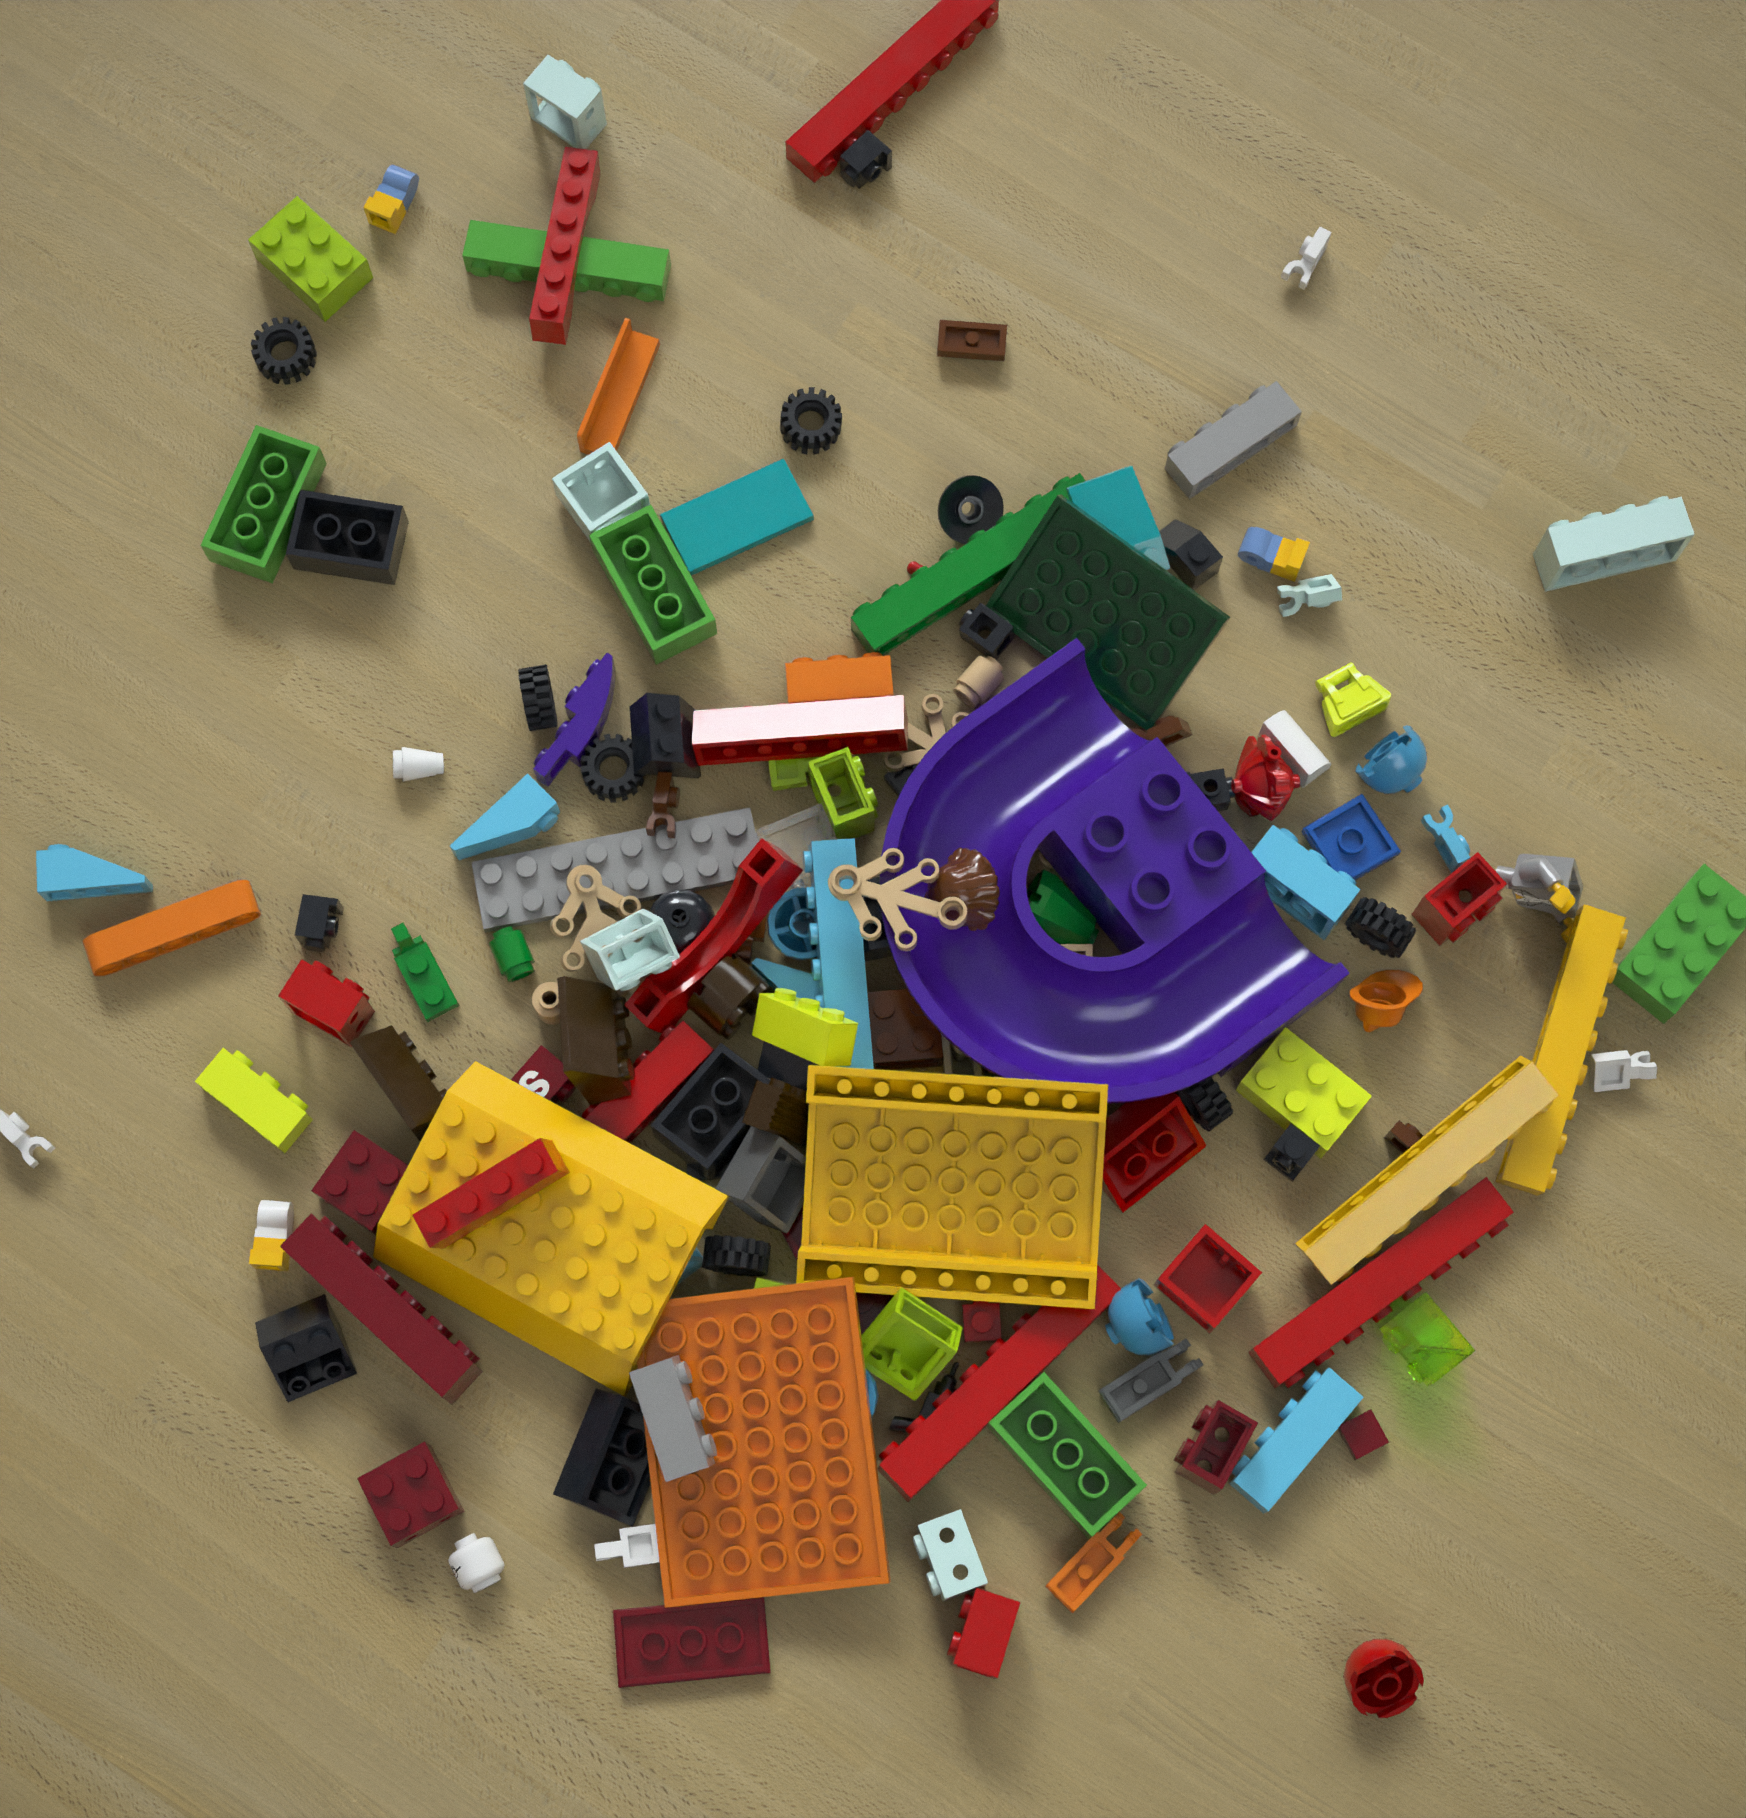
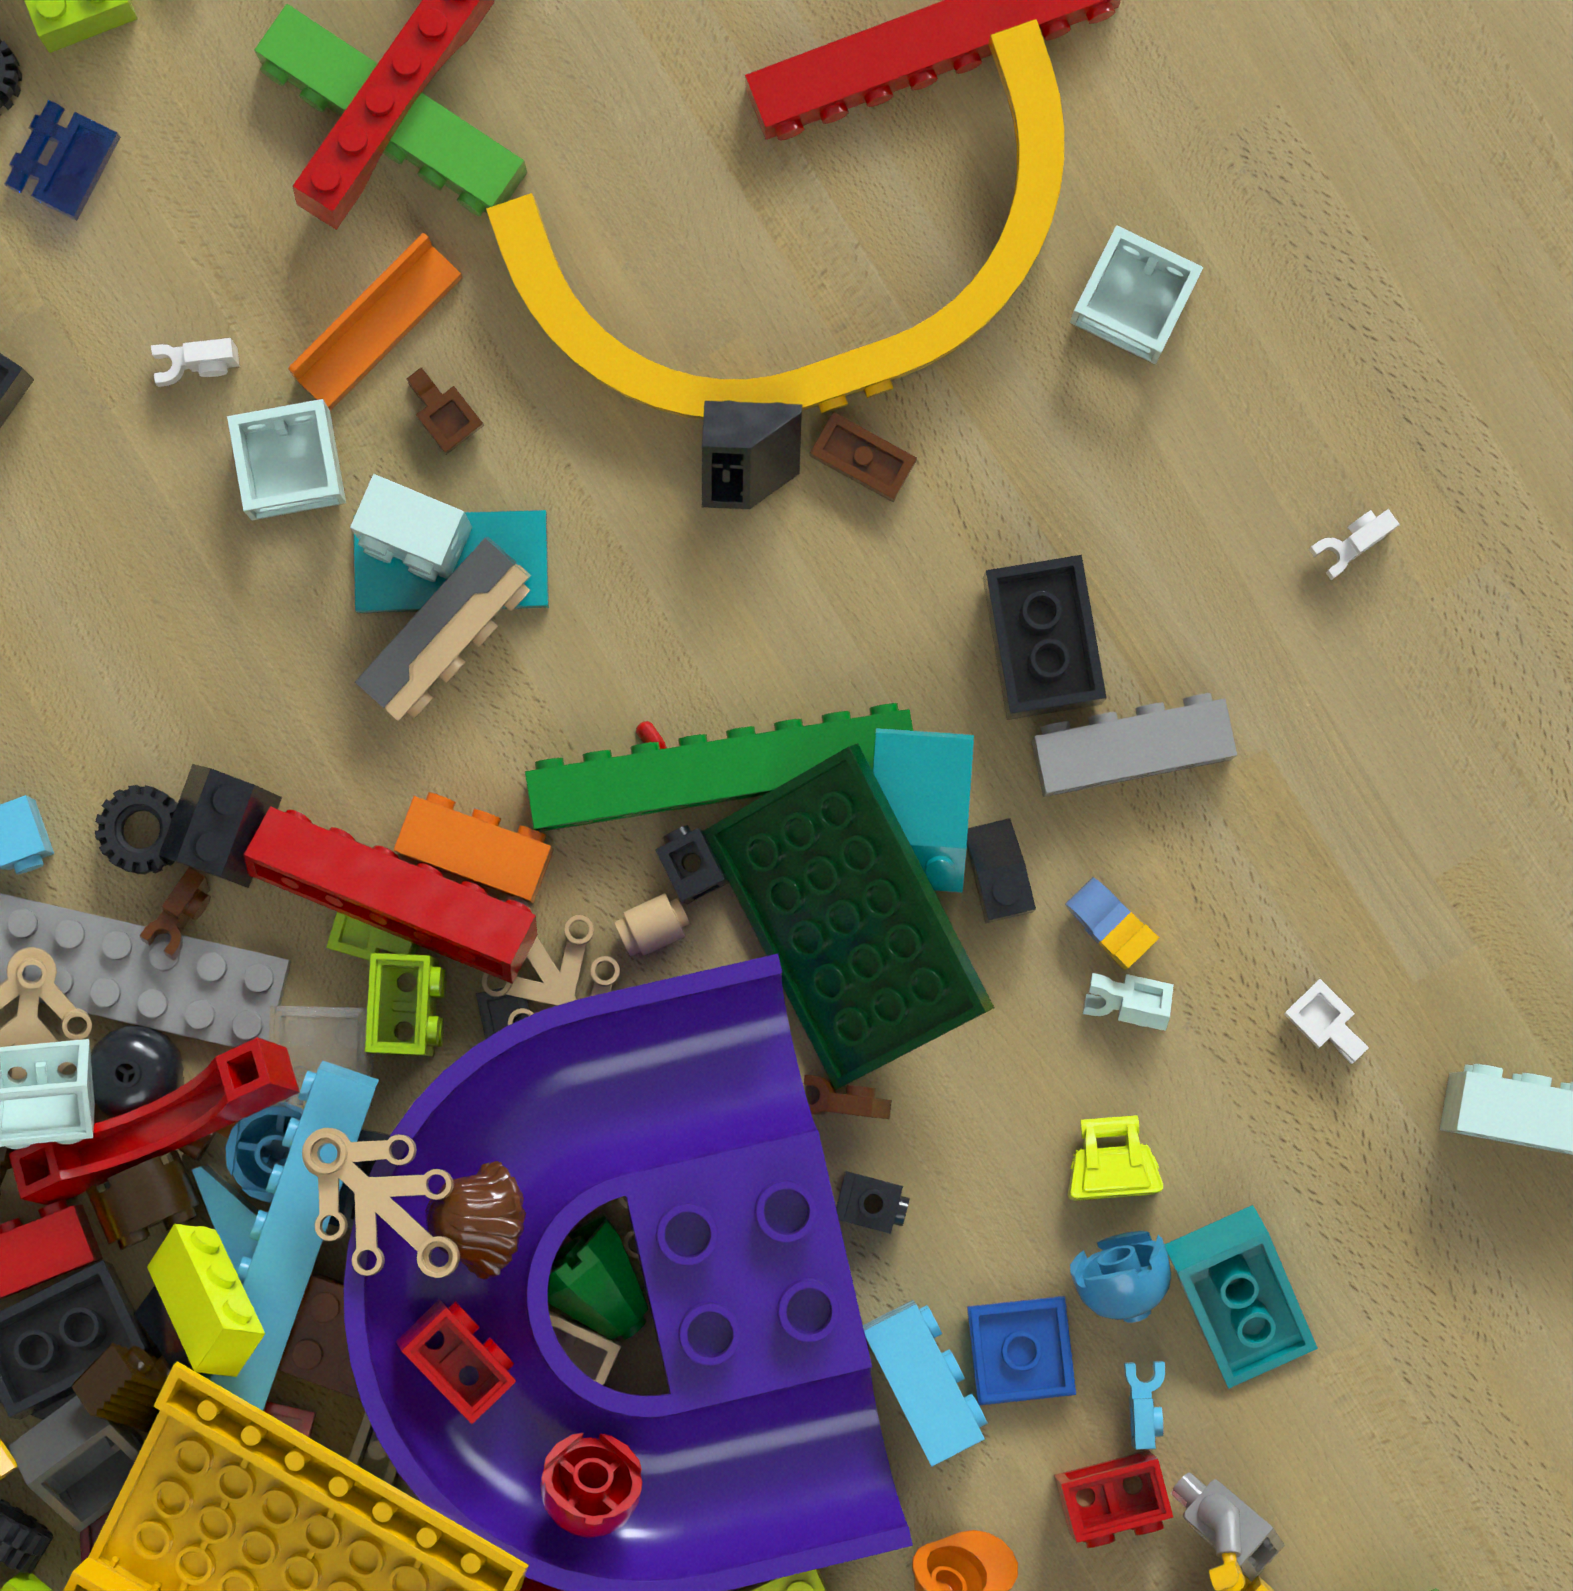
camera: 25 degrees right, 10 degrees up
(374, 383) = (74, 165): none -> clear blue plate
(514, 458) = (207, 357): none -> white plate
(537, 697) = (84, 699): black tyre -> none
(588, 710) = (145, 739): dark purple slope -> none
(653, 584) = (297, 611): bright green brick -> none
(690, 428) = (446, 415): none -> reddish brown plate
(705, 495) = (411, 528): none -> light aqua piece
(754, 553) = (443, 629): none -> piece
(810, 438) = (604, 445): black tyre -> none
(821, 352) = (1039, 139): none -> yellow arch
(865, 160) = (840, 143): black brick -> none
(898, 361) = (748, 451): none -> black slope
(985, 507) = (757, 706): black dish -> none
(994, 977) = (457, 1351): none -> red piece
(1097, 171) = (1135, 294): none -> light aqua piece
(1121, 1025) = (591, 1484): none -> red cylinder
(1143, 395) = (1044, 637): none -> black brick
(1263, 779) = (945, 1224): red helmet -> none
(1296, 747) = (1011, 1196): white brick -> none
(1380, 927) = (997, 1485): black tyre -> none
(1436, 551) = (1322, 1017): none -> white plate
(1475, 743) = (1241, 1296): none -> teal slope

